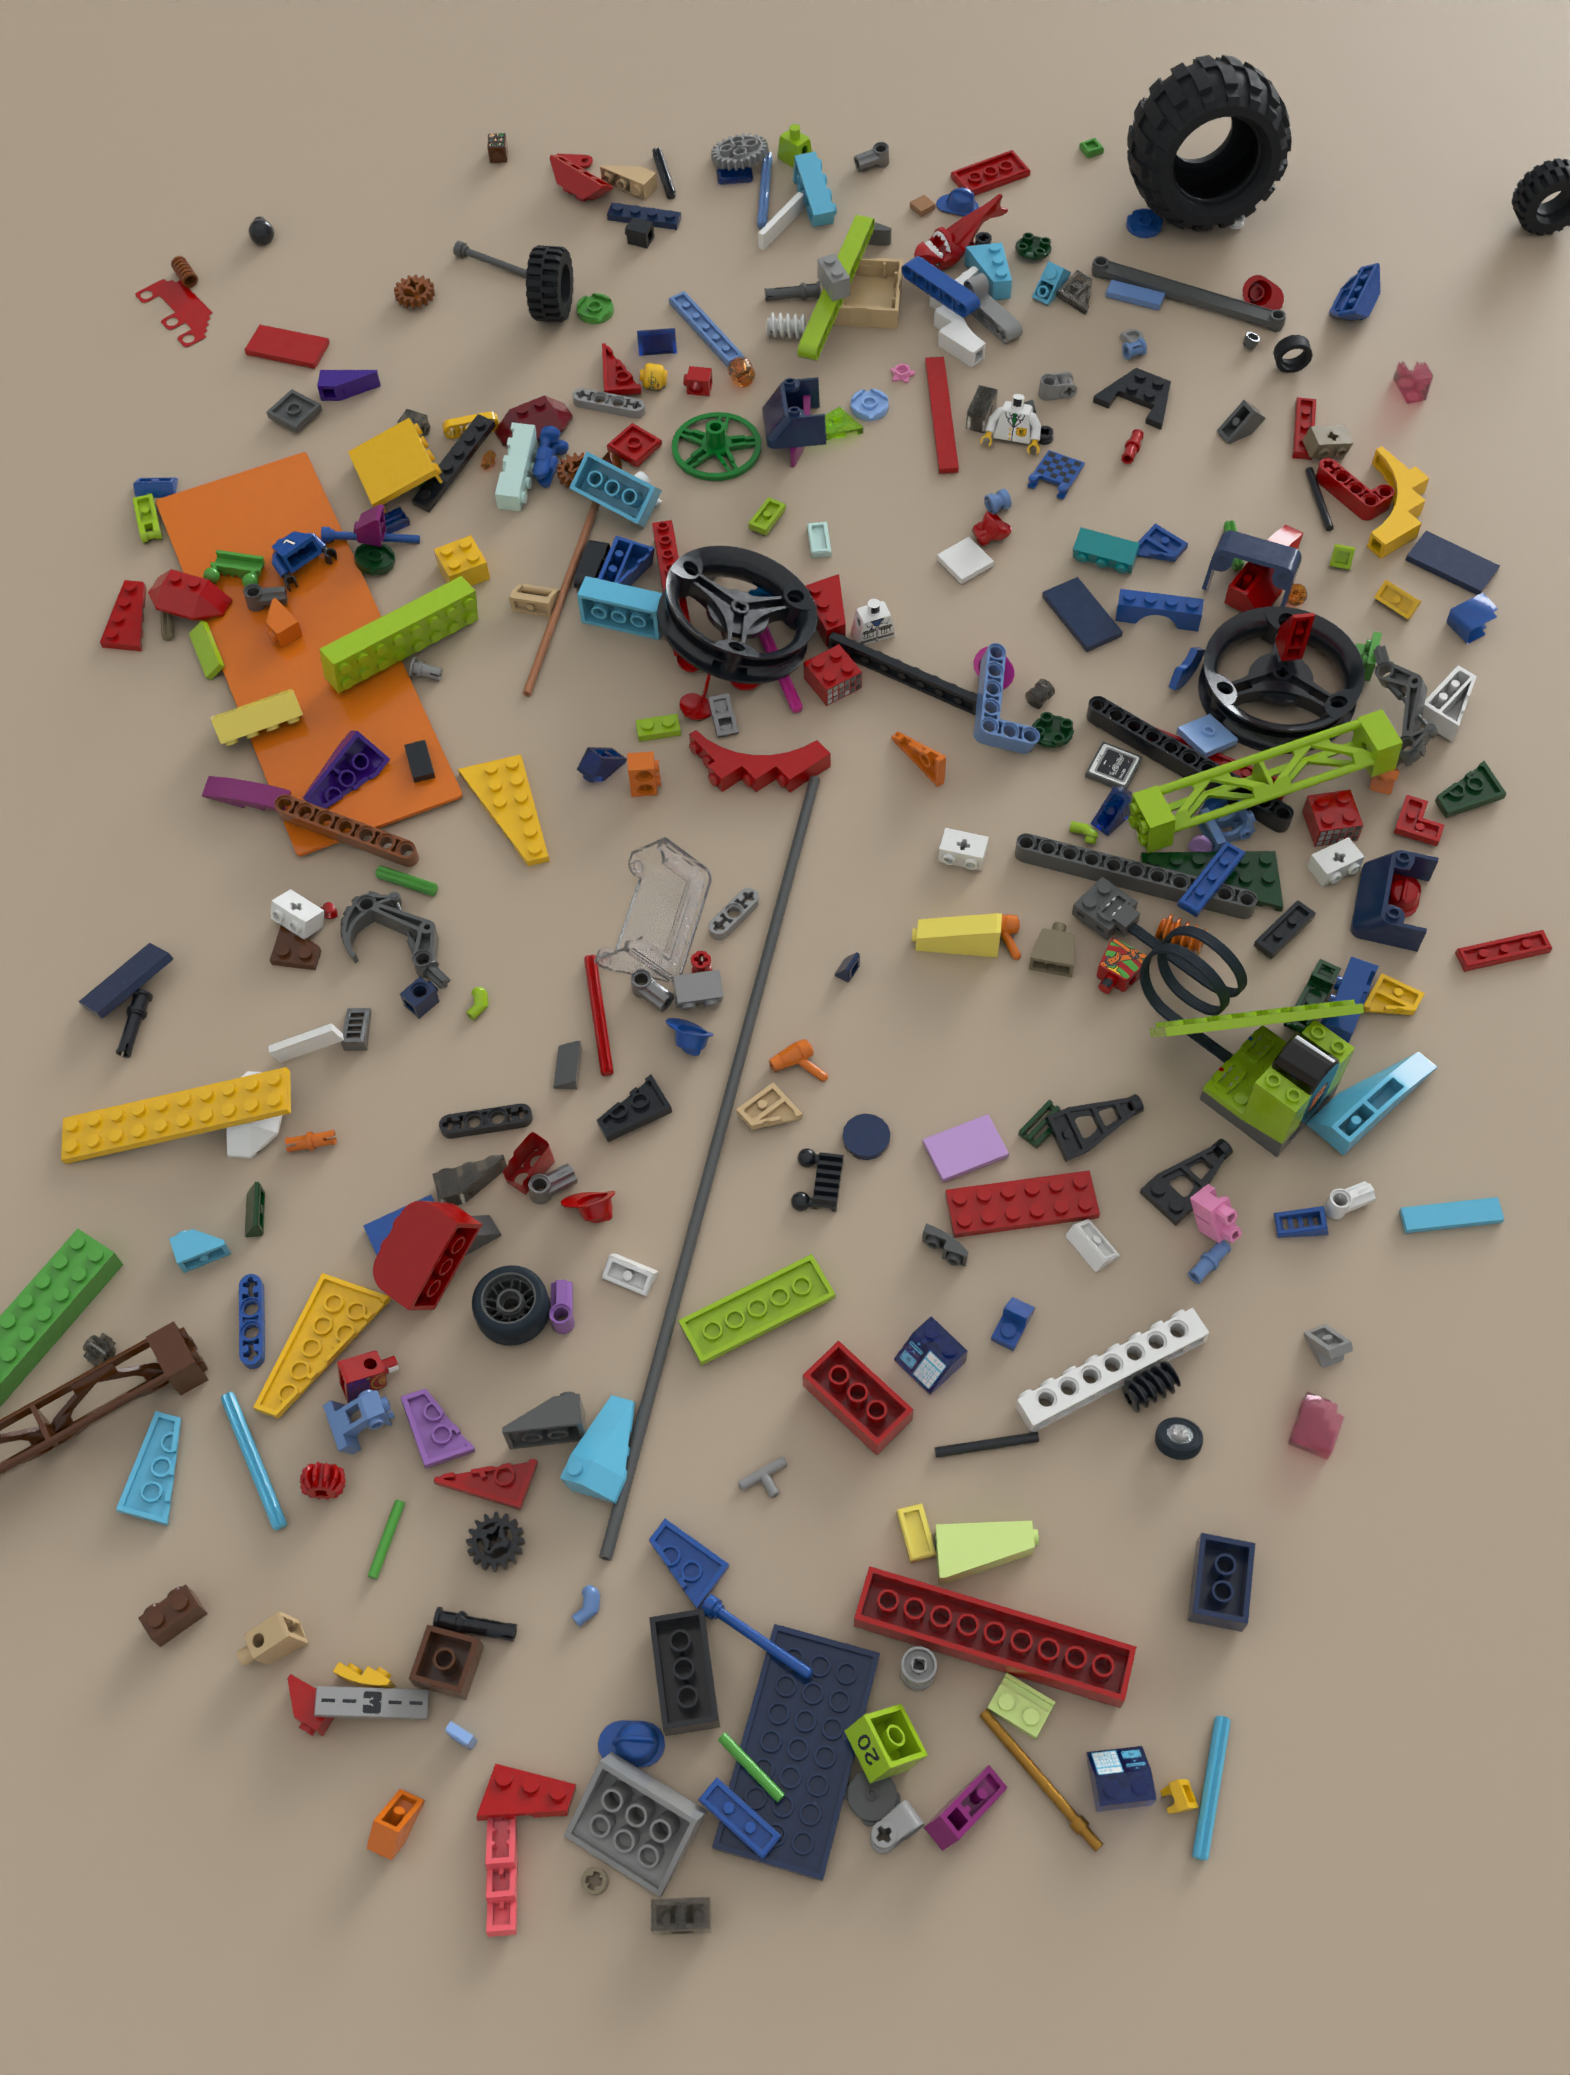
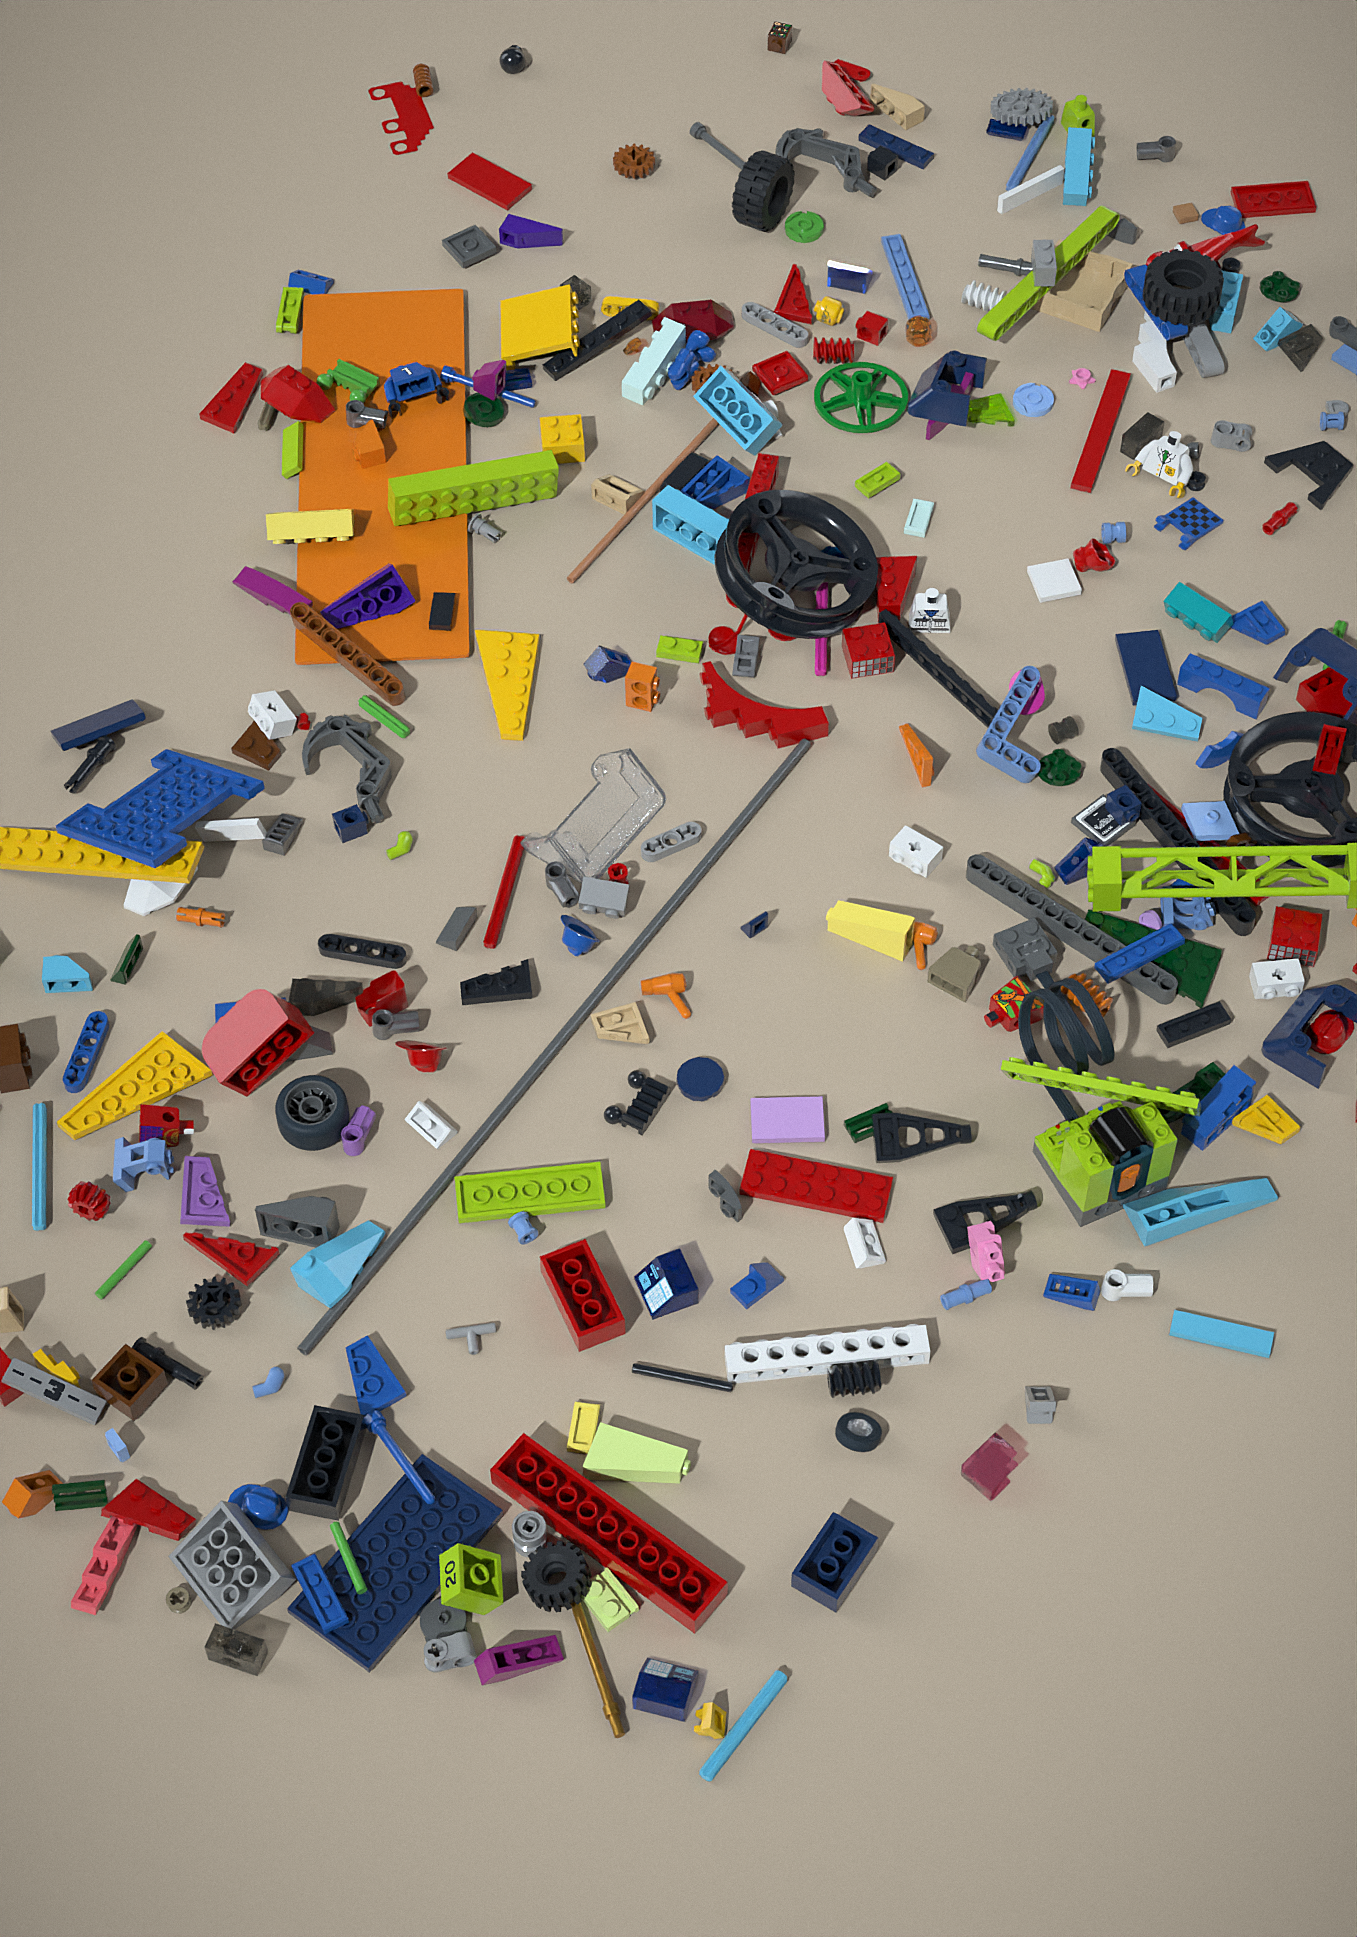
camera: 20 degrees right, 5 degrees down
(226, 1048) = (152, 814): none -> blue piece
(445, 1806) = (81, 1498): none -> dark green tile
(590, 235) = (843, 156): none -> dark grey piece
(664, 173) = (936, 105): black axle -> none
(674, 410) = (833, 350): none -> red piece
(767, 1348) = (523, 1227): none -> medium blue bush
(946, 1695) = (548, 1562): none -> black tyre
(964, 264) = (1179, 304): none -> black tyre
(1121, 654) = (1164, 717): none -> medium azure wing
(1128, 746) = (1123, 805): none -> dark blue brick
(1243, 747) = (1240, 840): none -> reddish brown plate

